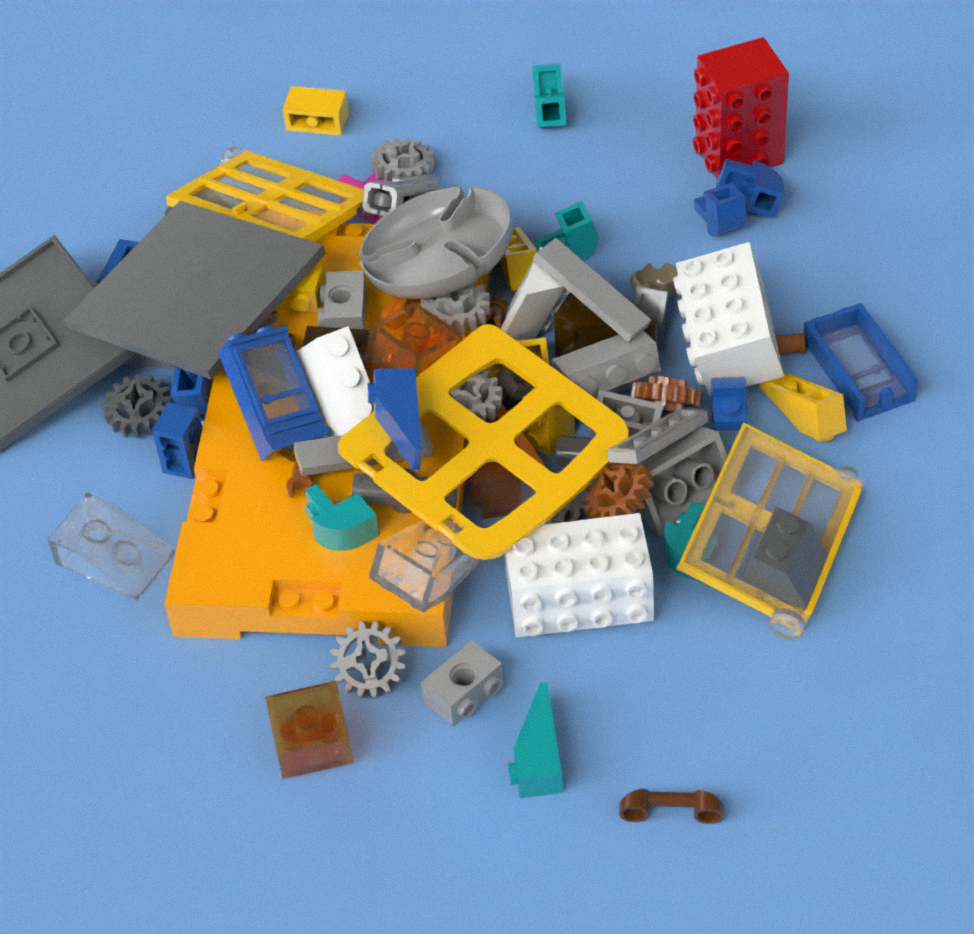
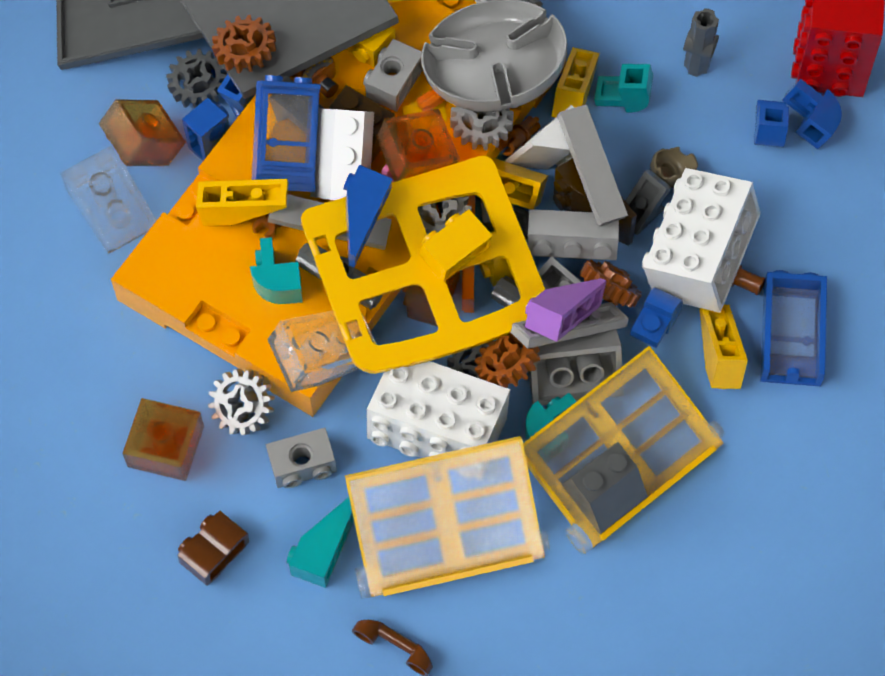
camera: 25 degrees right, 15 degrees up
(111, 469) = (141, 132): none -> clear orange brick
(184, 327) = (244, 43): none -> dark orange gear
(262, 467) = (239, 200): none -> yellow slope
(424, 807) = (213, 547): none -> reddish brown brick
(508, 405) = (455, 244): none -> yellow brick
(615, 167) = (701, 42): none -> dark grey piece
(644, 417) = (563, 308): none -> medium lavender slope
(648, 660) = (444, 518): none -> clear door

